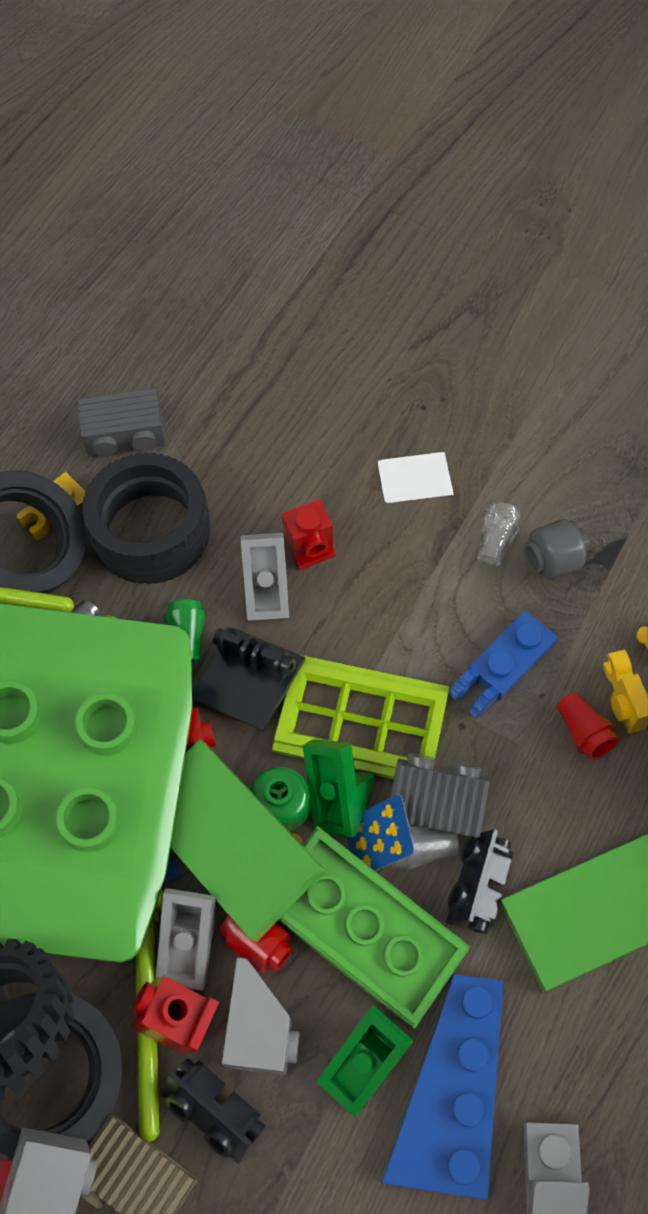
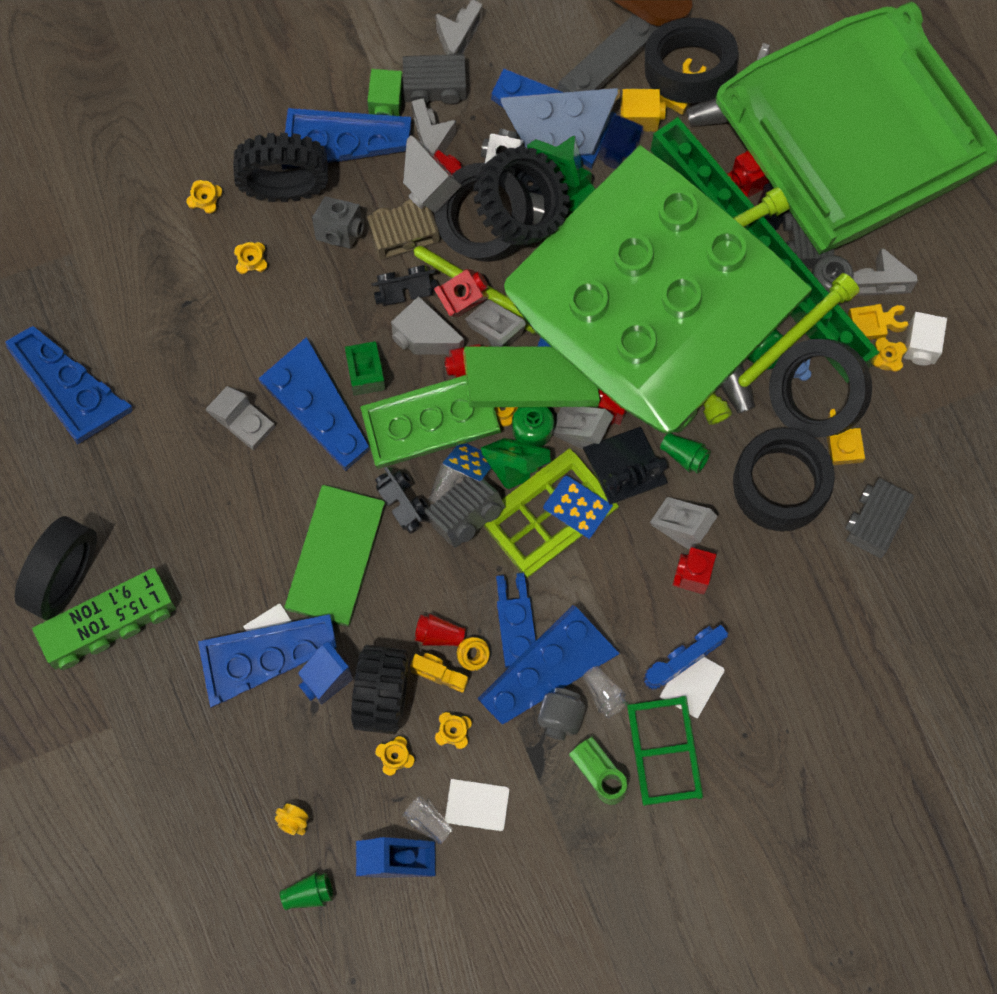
camera: 125 degrees right, 10 degrees up
(238, 740) = (581, 425): none -> light grey slope
(333, 691) = (577, 506): none -> blue sticker
(402, 487) = (684, 658): none -> blue hinge
(514, 595) = (549, 663): none -> blue wing
(521, 471) = (640, 754): none -> green window
(575, 483) = (598, 769): none -> bright green piece
(575, 674) = (481, 657): none -> yellow plate

